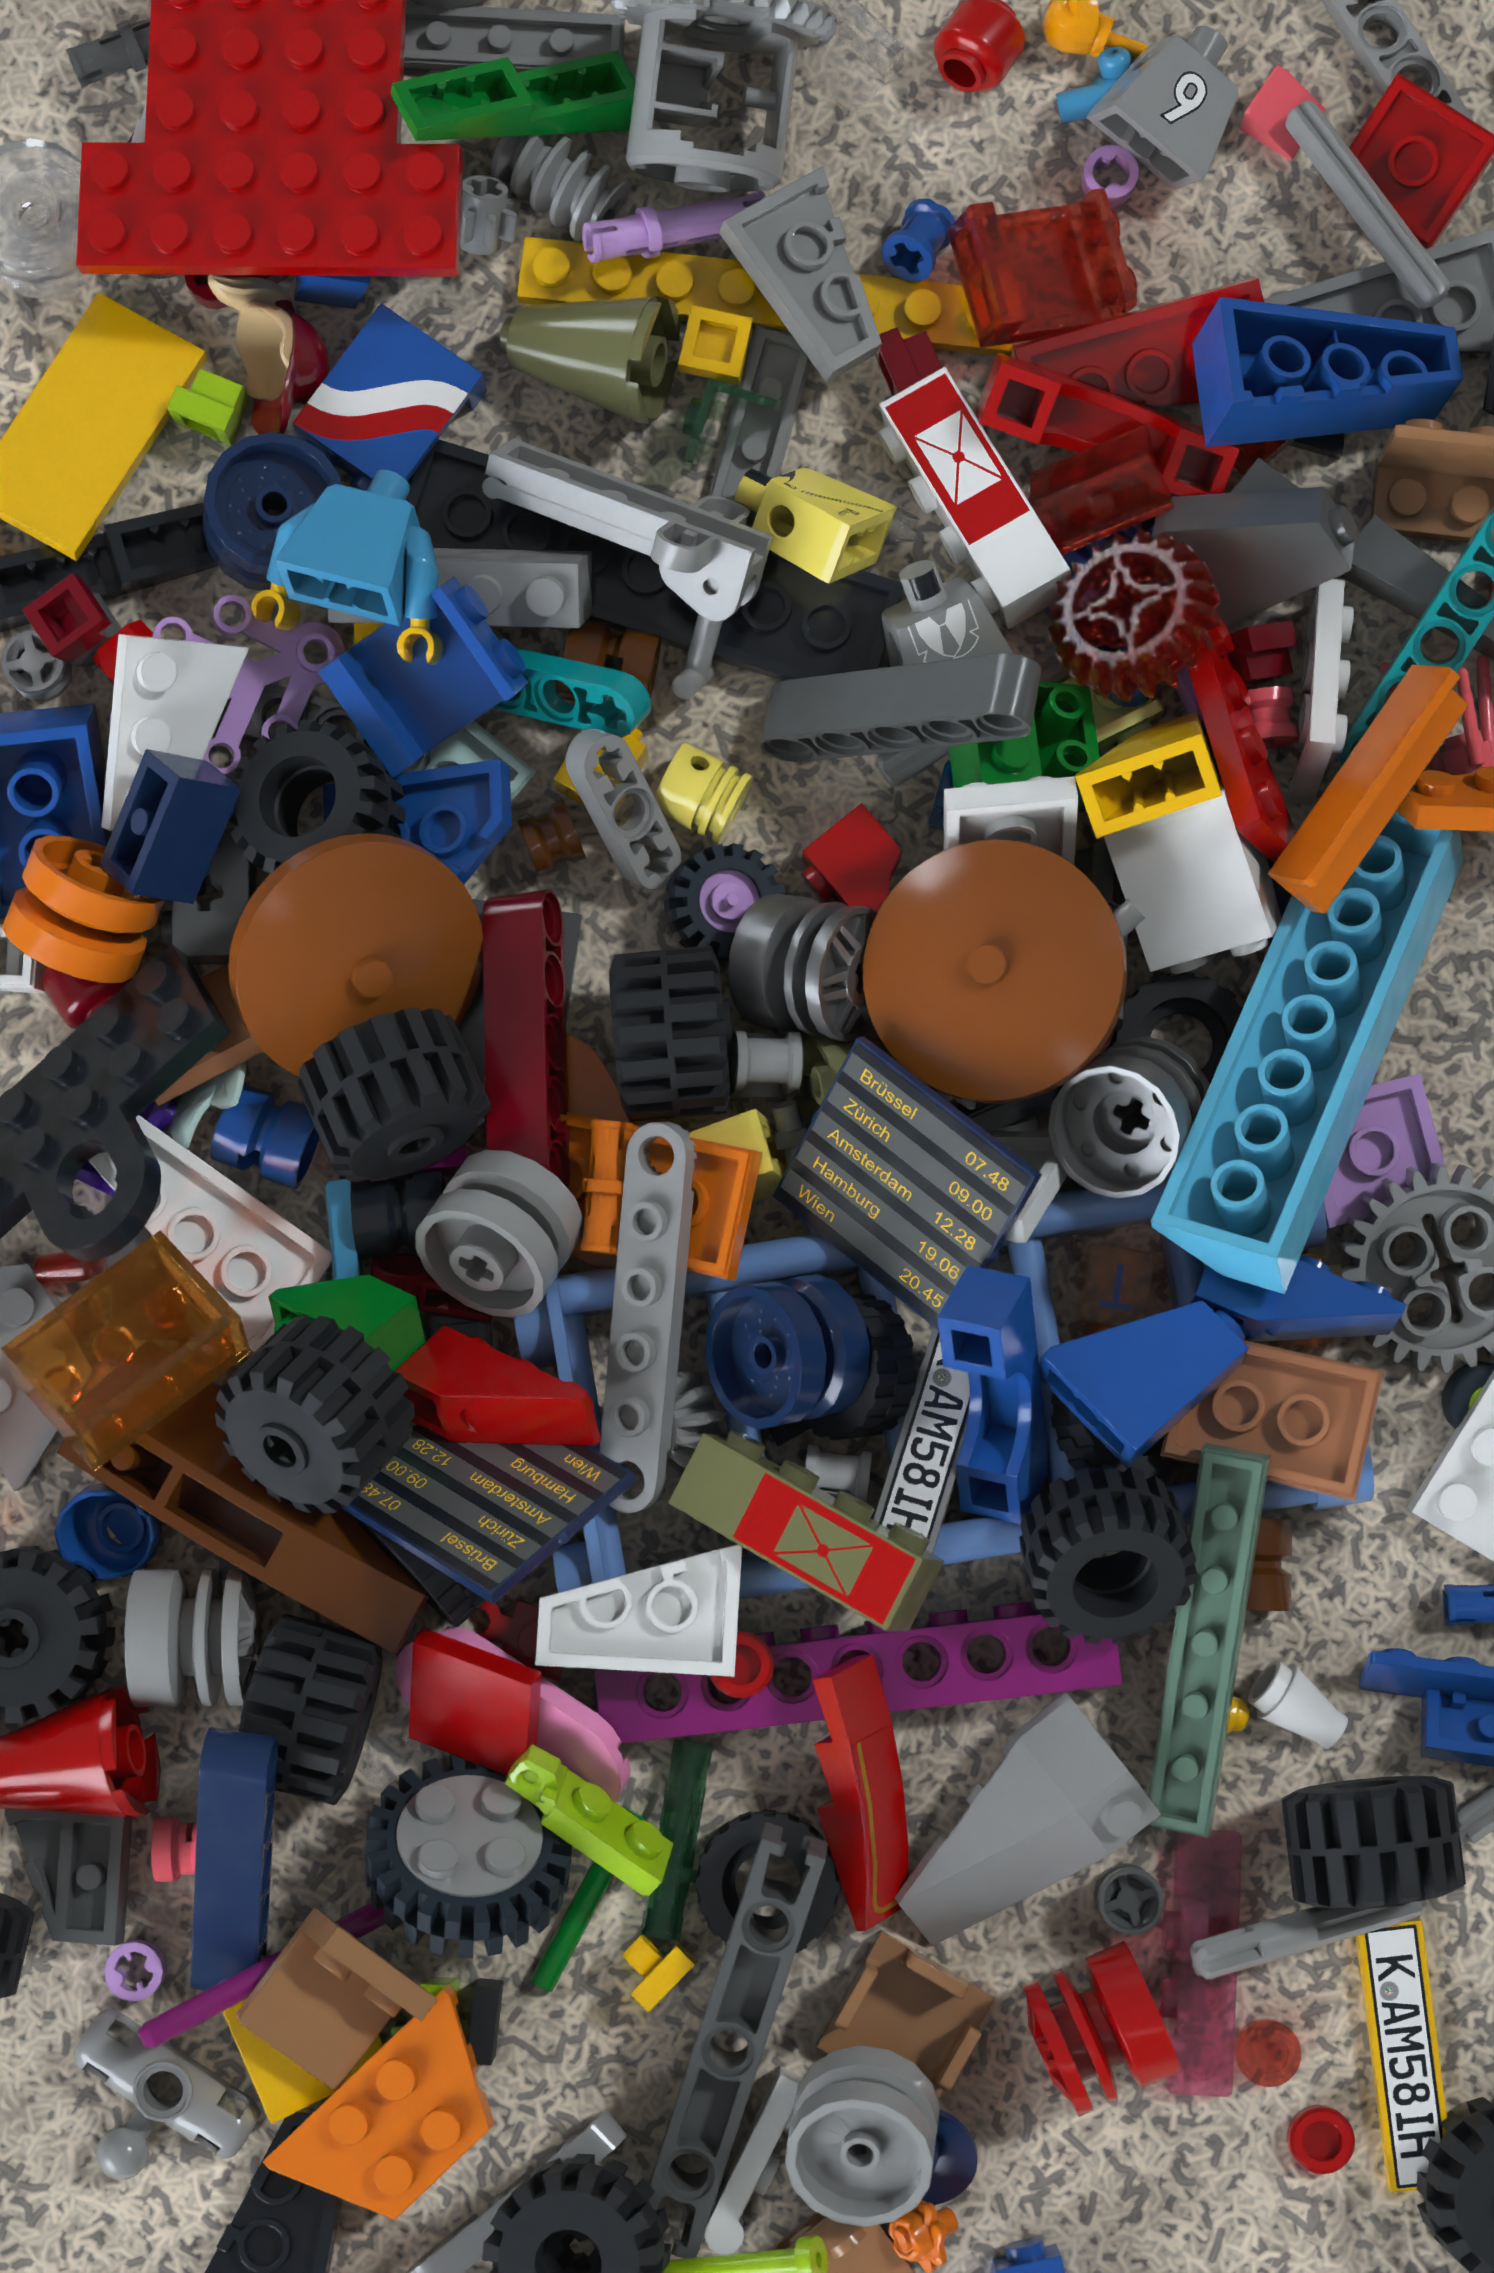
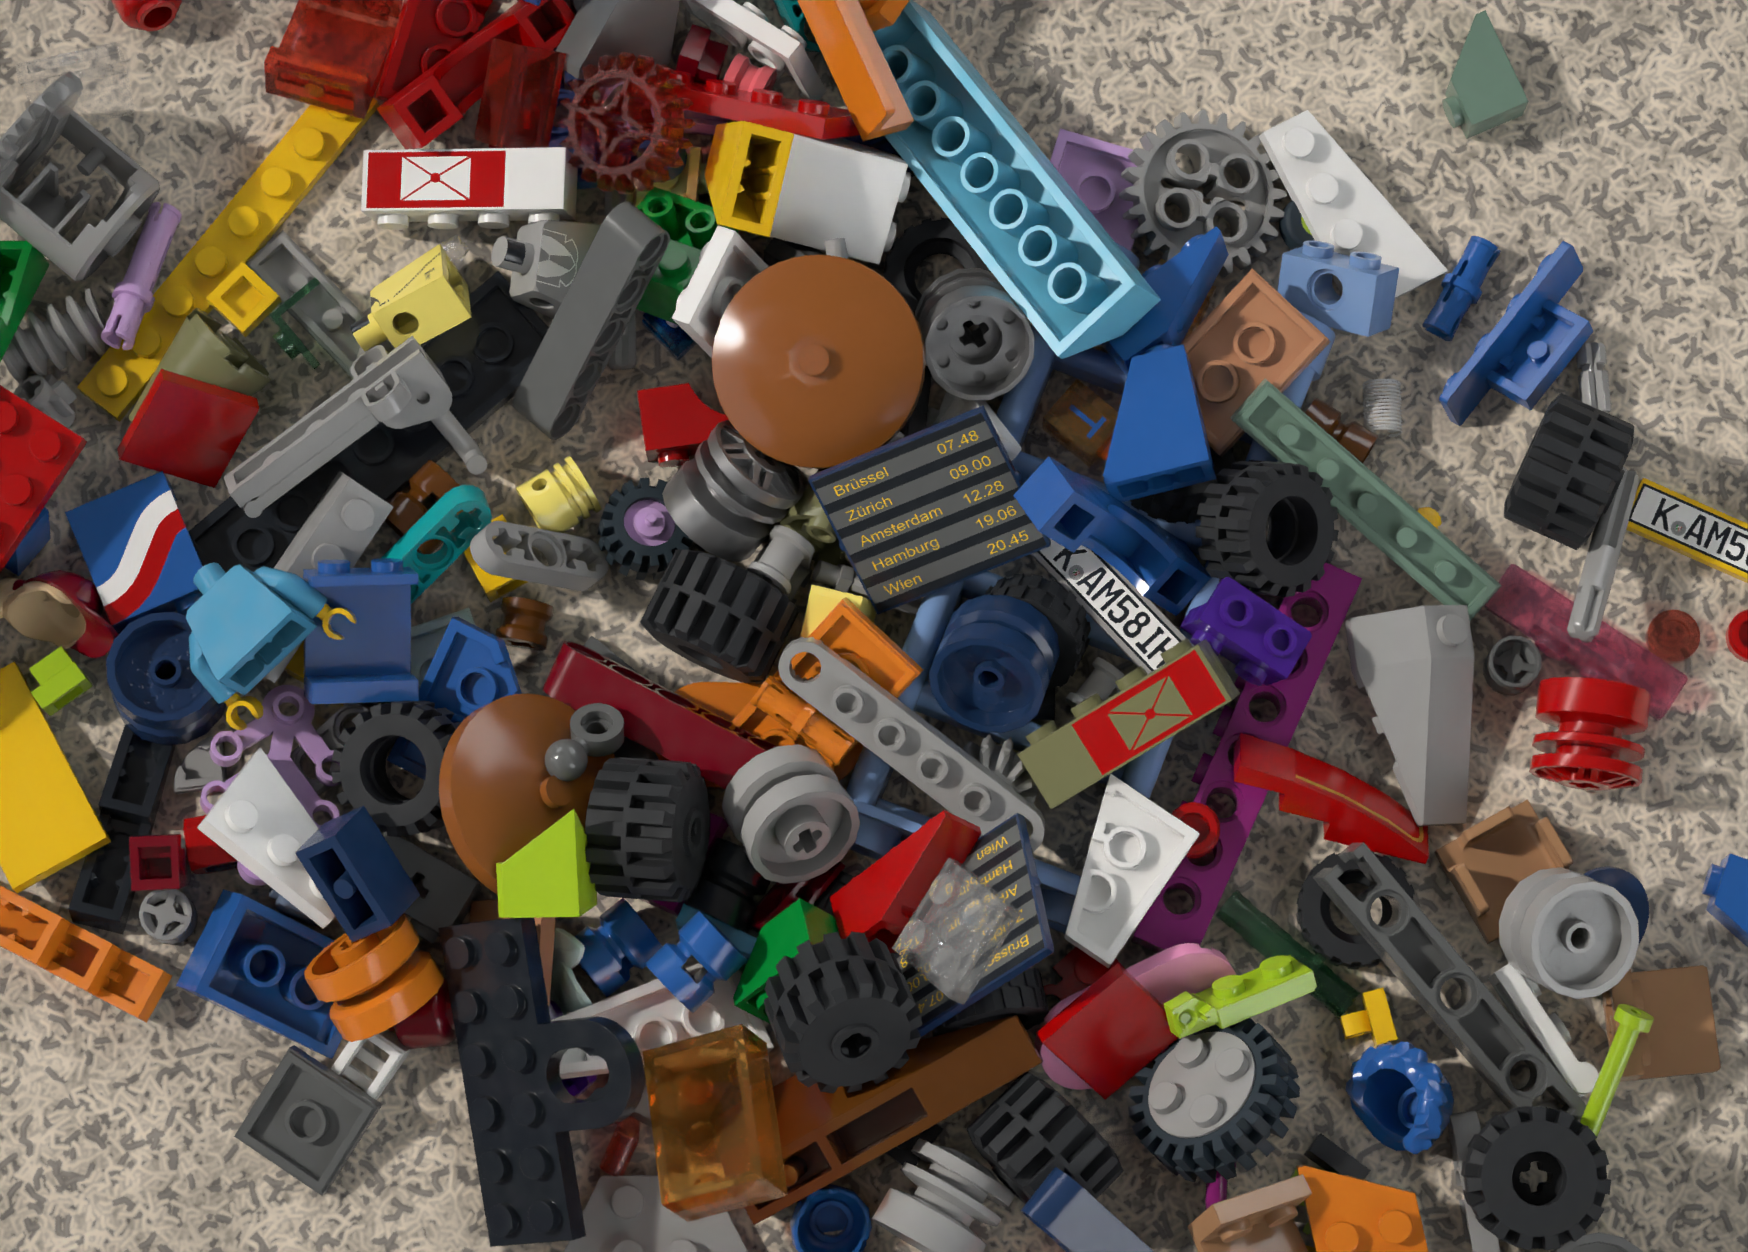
camera: 60 degrees left, 5 degrees down
(197, 603) = (199, 769): none -> light grey tile
(271, 1024) = (548, 875): none -> lime slope
(310, 1236) = (710, 948): none -> blue wheel
(415, 967) = (594, 731): none -> dark grey plate
(470, 1483) = (956, 930): none -> clear plate
(540, 370) = (188, 428): none -> red tile
(573, 1924) = (1303, 1060): green bar -> none
(590, 2053) = (1400, 1096): none -> blue hair
(802, 269) = (232, 206): light grey wing -> none
(906, 360) = (340, 178): dark red piece -> none
(912, 249) = (262, 121): blue bush -> none
(922, 2234) = (1661, 944): orange plant -> none
(982, 1601) = (1248, 633): none -> dark purple bracket
(1294, 1703) = (1444, 473): white cone -> none
(1337, 1606) = (1393, 426): none -> white piece
(1449, 1498) = (1366, 285): none -> medium blue brick

